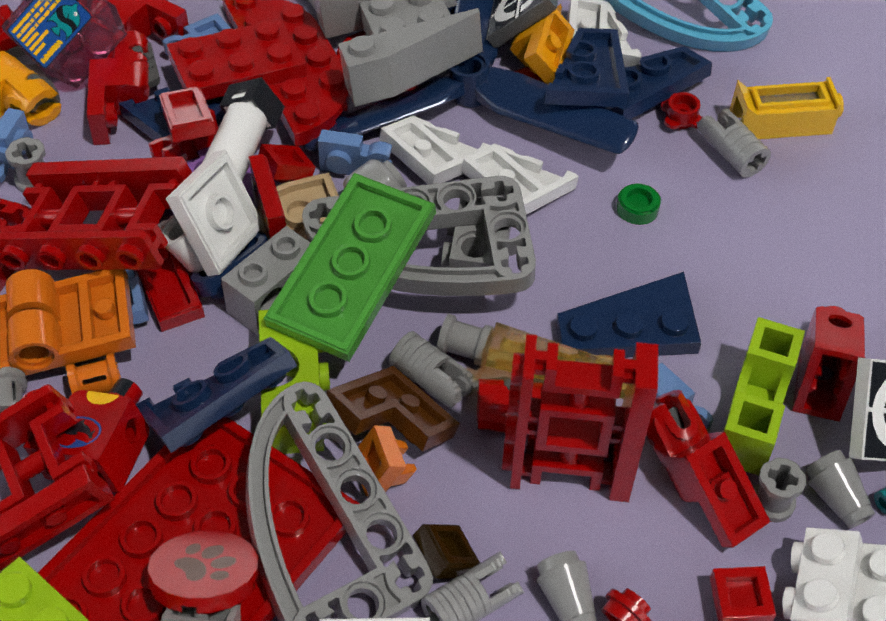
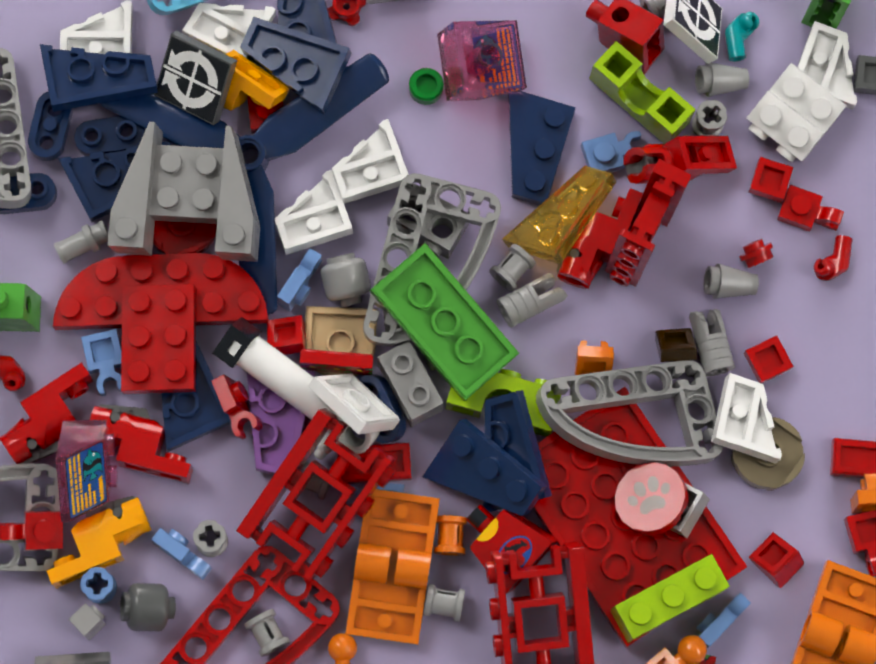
camera: 75 degrees left, 25 degrees up
(181, 374) = (484, 470): none -> dark blue wing
(187, 114) = (229, 396): red tile -> none
(393, 399) = (549, 337): reddish brown plate -> none
(697, 225) = (481, 59): none -> clear pink slope

